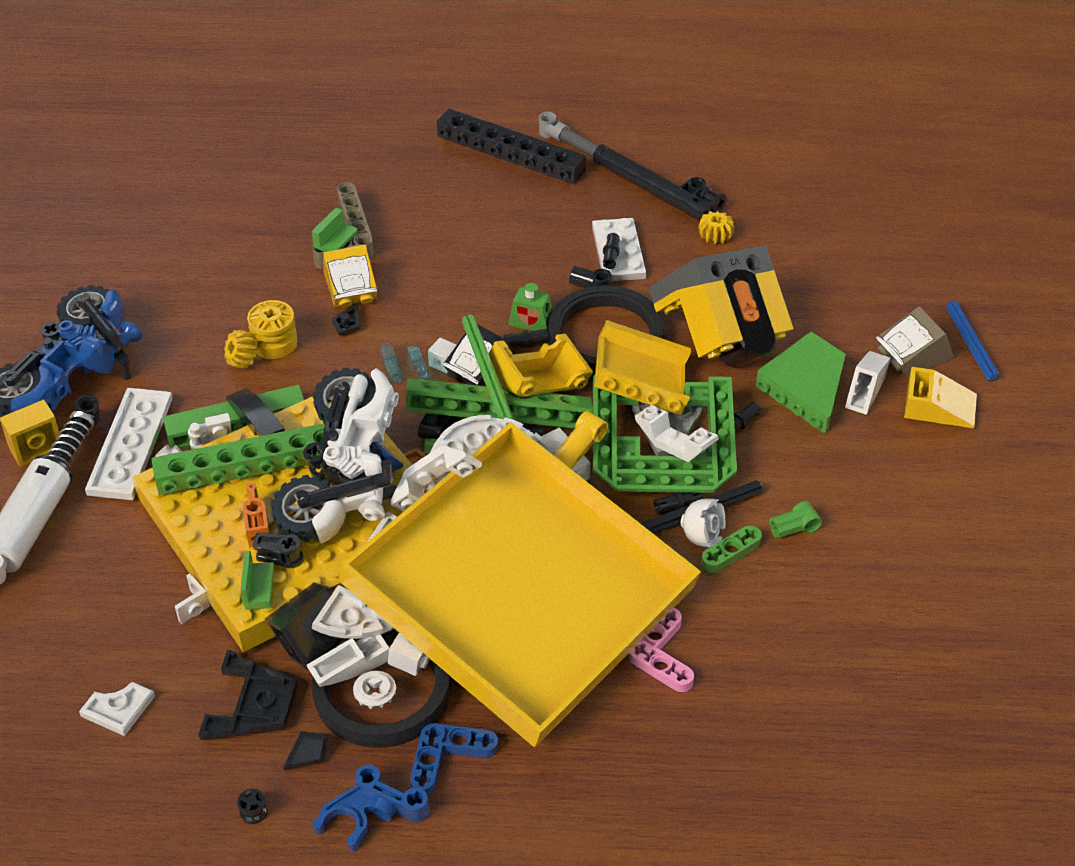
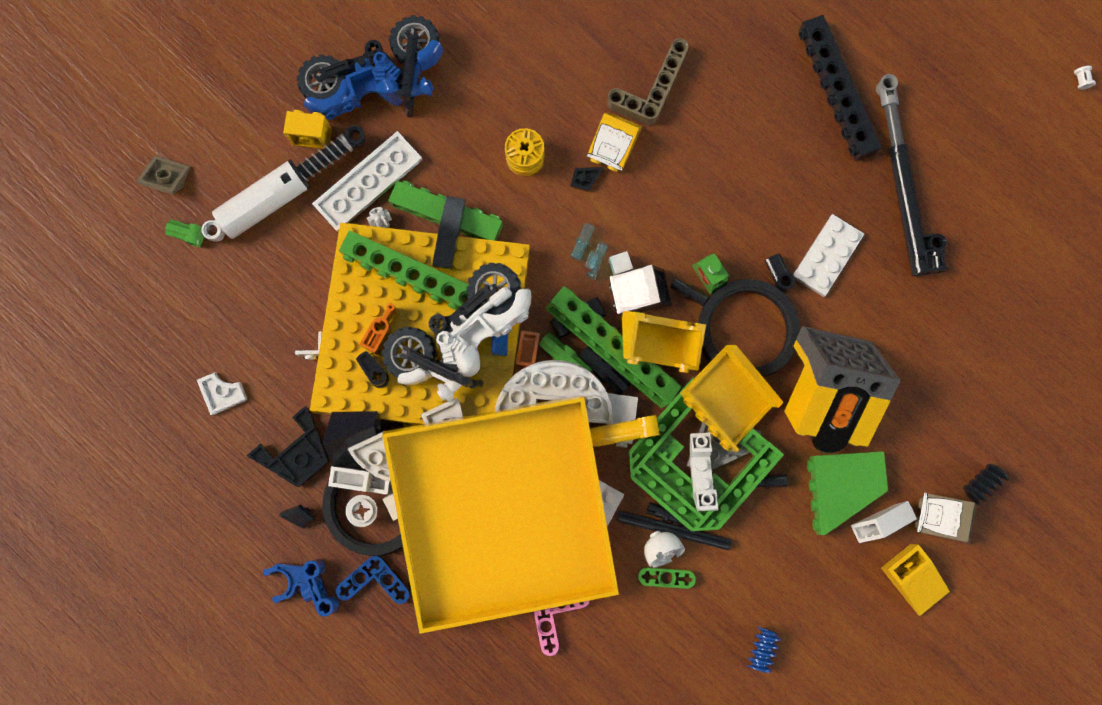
camera: 40 degrees right, 35 degrees up
(212, 429) = (418, 223): white plate -> none
(240, 349) = (490, 155): yellow gear -> none
(249, 799) = (237, 529): black wheel -> none
(257, 583) = (341, 386): bright green panel -> none
(333, 232) = (631, 93): bright green panel -> none
(428, 469) = (515, 408): white slope -> none
(486, 367) = (615, 329): bright green axle -> none
(611, 250) = (814, 261): black pin -> none
(694, 42) = (1084, 77): none -> white bush
(716, 227) = (920, 289): yellow gear -> none
(801, 518) = (730, 594): bright green piece -> none
(876, 535) = (764, 650): none -> blue piece
(915, 295) = (984, 482): none -> black piece
(972, 341) = (996, 543): blue axle -> none

